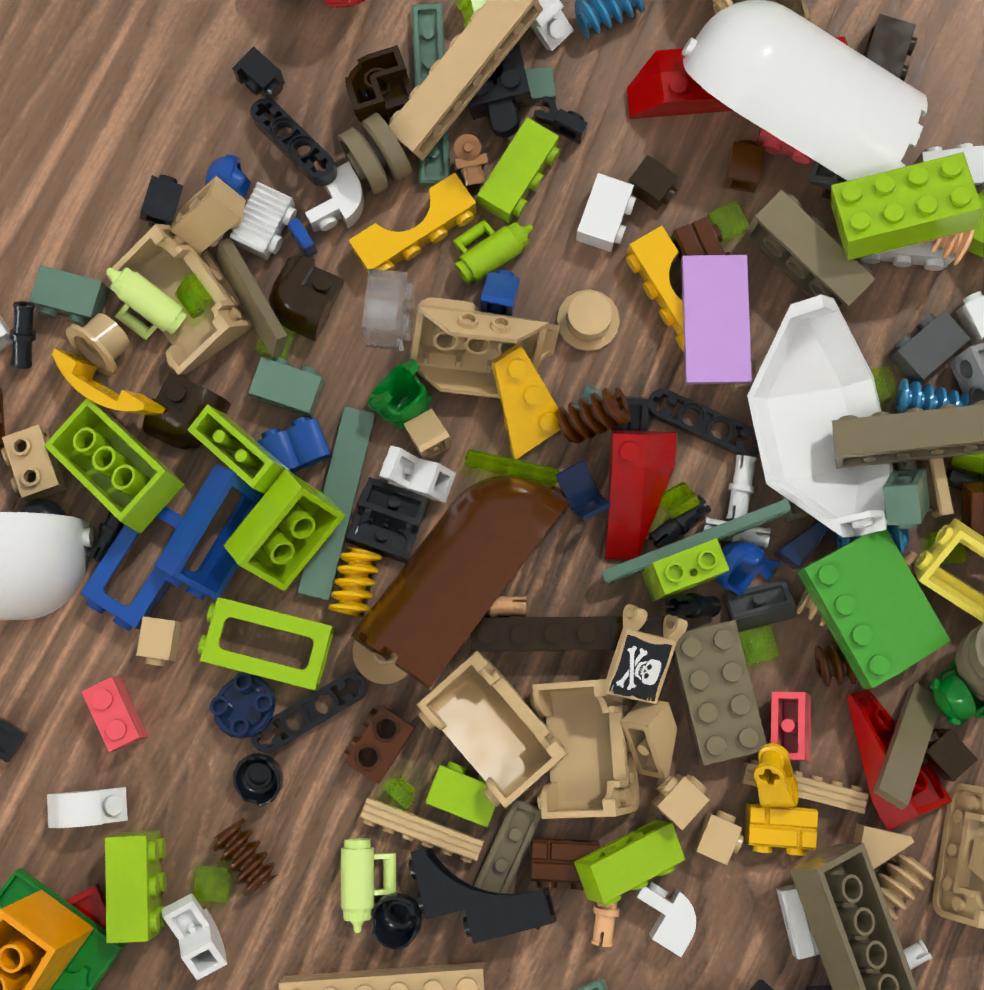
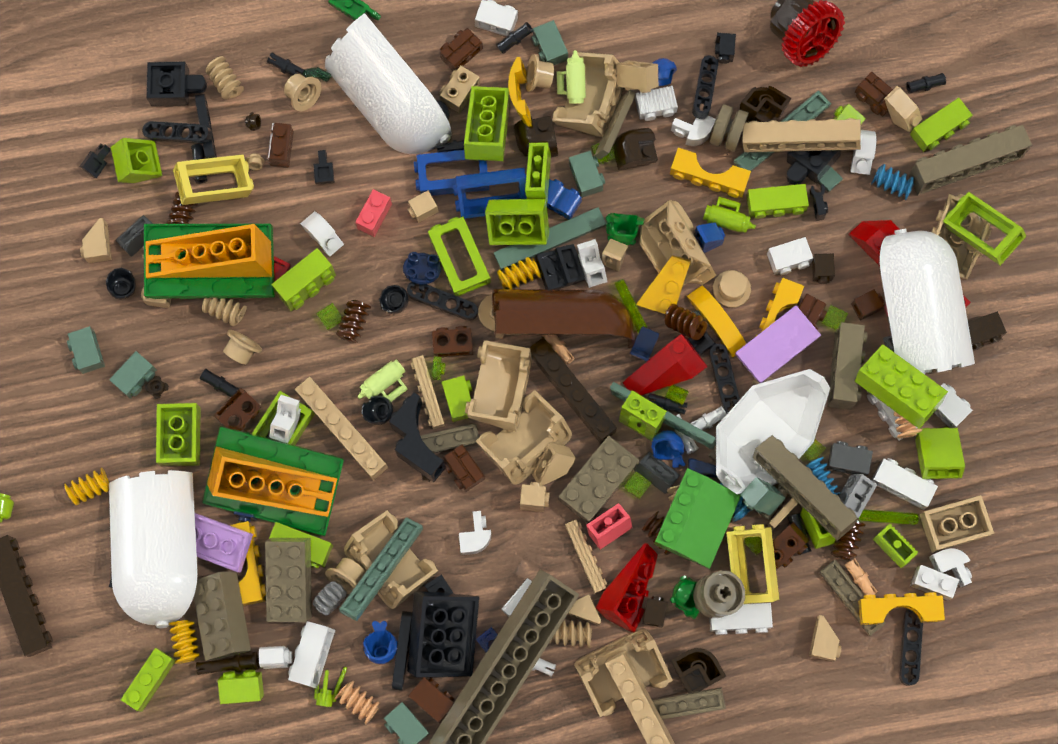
camera: 55 degrees right, 5 degrees down
(161, 200) = (627, 49): black brick -> none
(193, 295) = (594, 98): clear neon green tile -> none
(197, 936) = (303, 325): white brick -> none
(302, 237) = (662, 126): blue tile -> none
(386, 309) = (658, 189): clear brick -> none
(469, 161) = (763, 173): medium nougat hips -> none
(604, 923) = (455, 505): light nougat pin -> none
(617, 369) = (717, 319): none -> yellow slope
(629, 862) = (486, 495): lime brick -> none
(641, 657) = (584, 427): flag -> none
(692, 605) = (631, 436): black pin -> none
(719, 837) = (530, 532): tan brick -> none
(775, 777) = (578, 532): yellow piece -> none
(780, 827) = (557, 557): yellow brick -> none
(907, 747) = (642, 586): dark tan tile -> none

